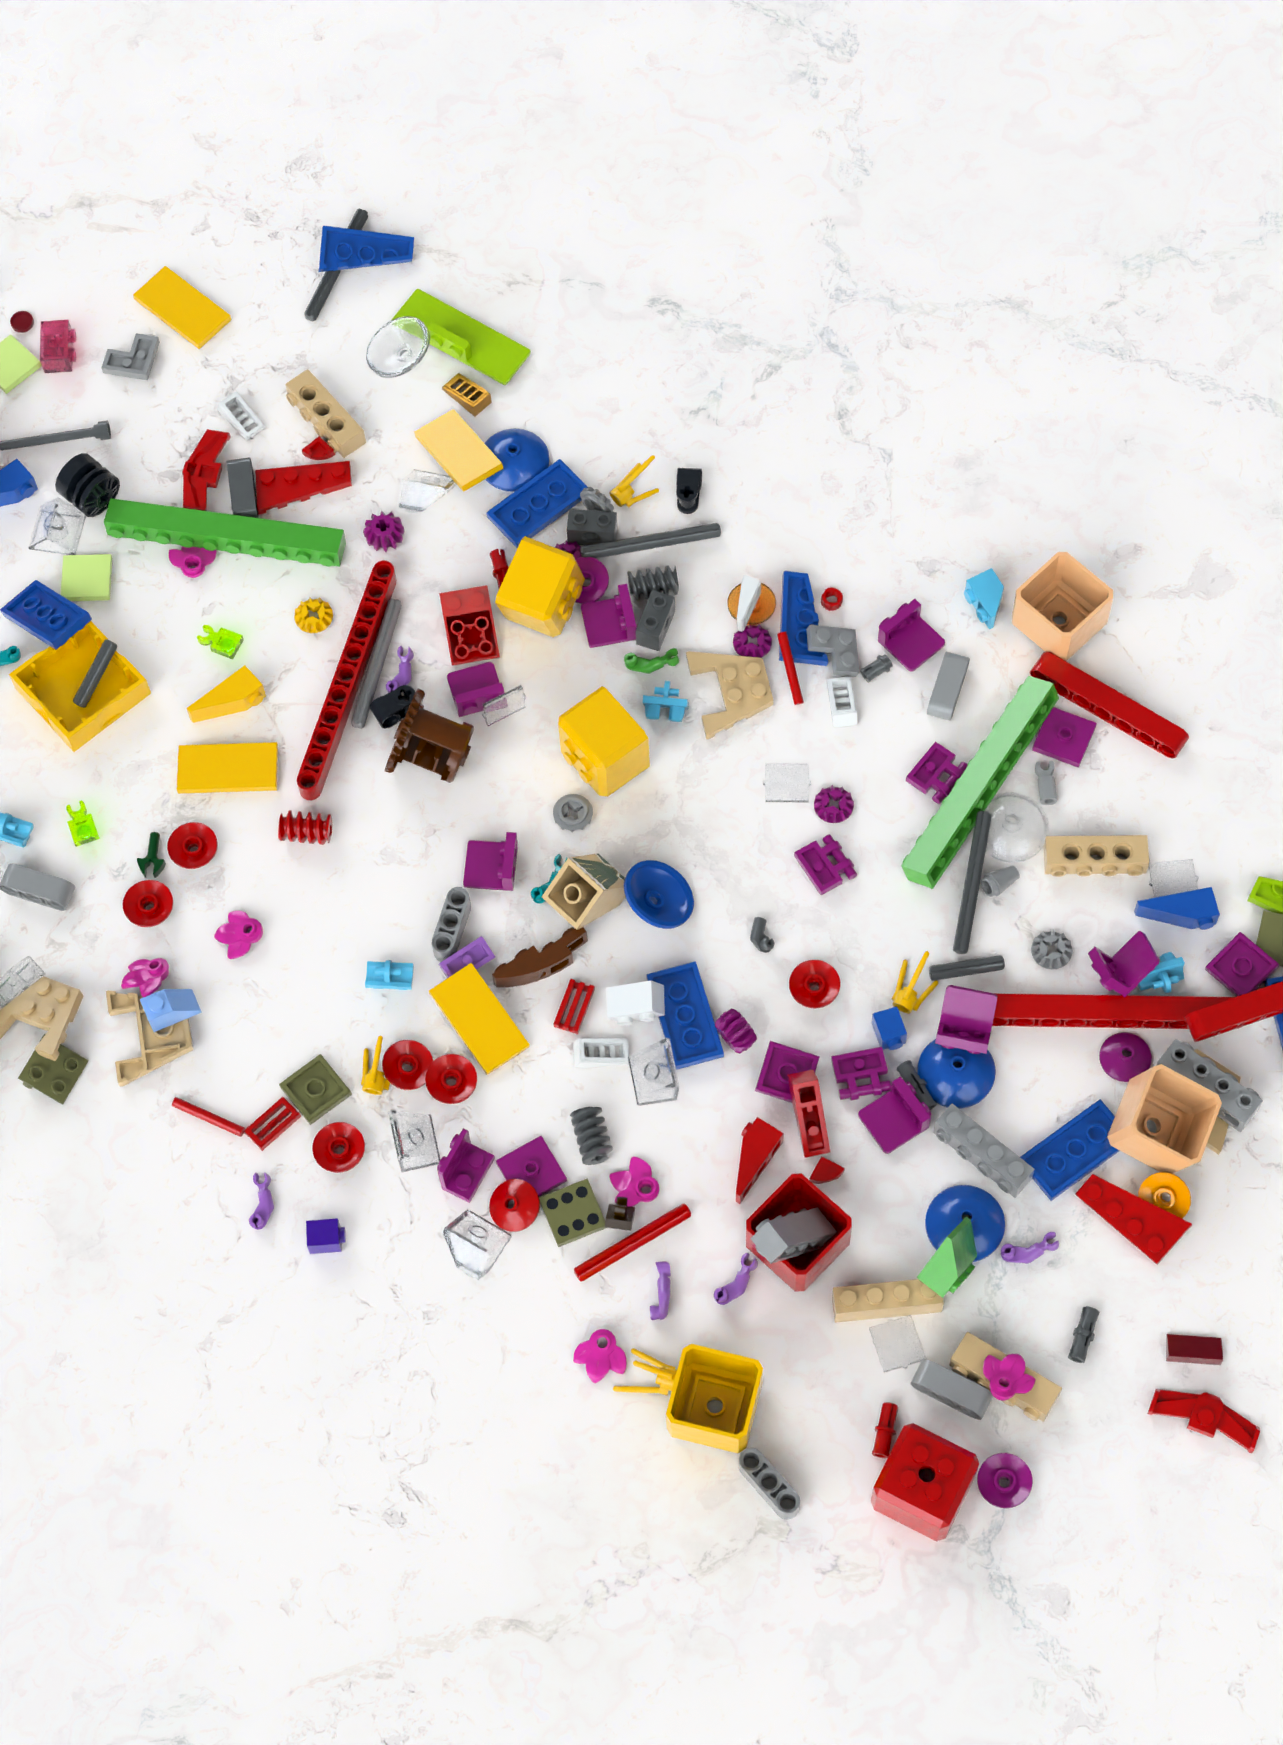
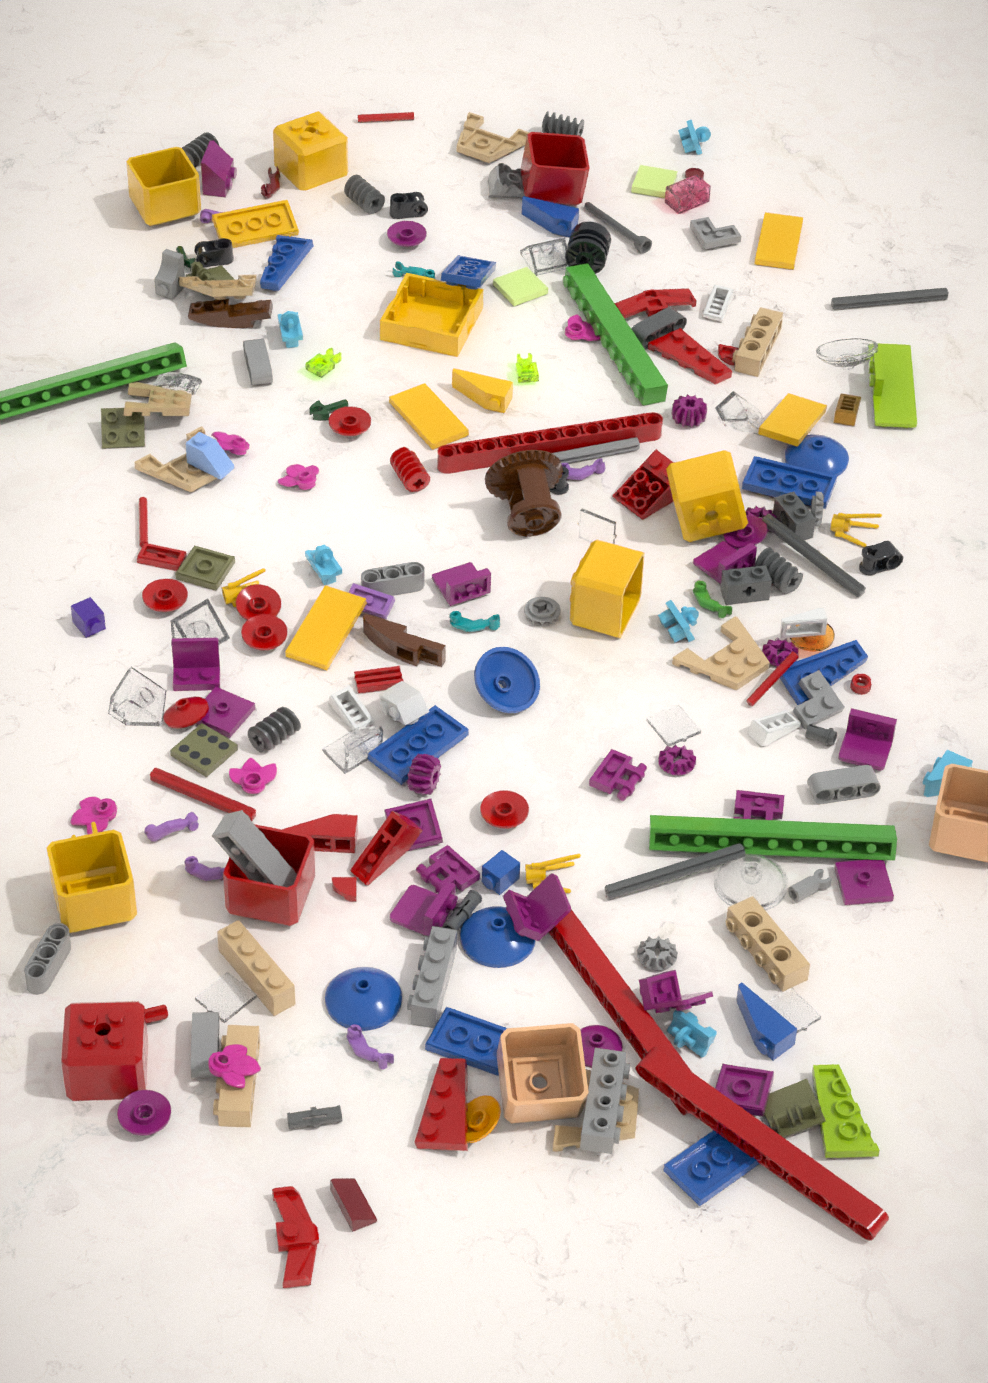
camera: 55 degrees right, 20 degrees down
(95, 673) = (443, 313): dark grey axle -> none
(147, 893) = (286, 418): red dish -> none
(265, 1207) = (93, 580): medium lavender arm -> none
(313, 624) = (595, 411): yellow gear -> none
(358, 248) = (911, 299): blue wing -> none
(474, 687) = (602, 506): magenta bracket -> none
(585, 889) = (475, 630): tan slope -> none
(619, 1215) = (218, 774): dark brown tile -> none
(758, 937) = (522, 761): dark grey arm -> none
(951, 1261) = (312, 977): slope -> none
(966, 967) = (596, 903): dark grey axle -> none
(999, 880) = (692, 890): light grey cone -> none
(1111, 705) = (918, 897): red beam -> none

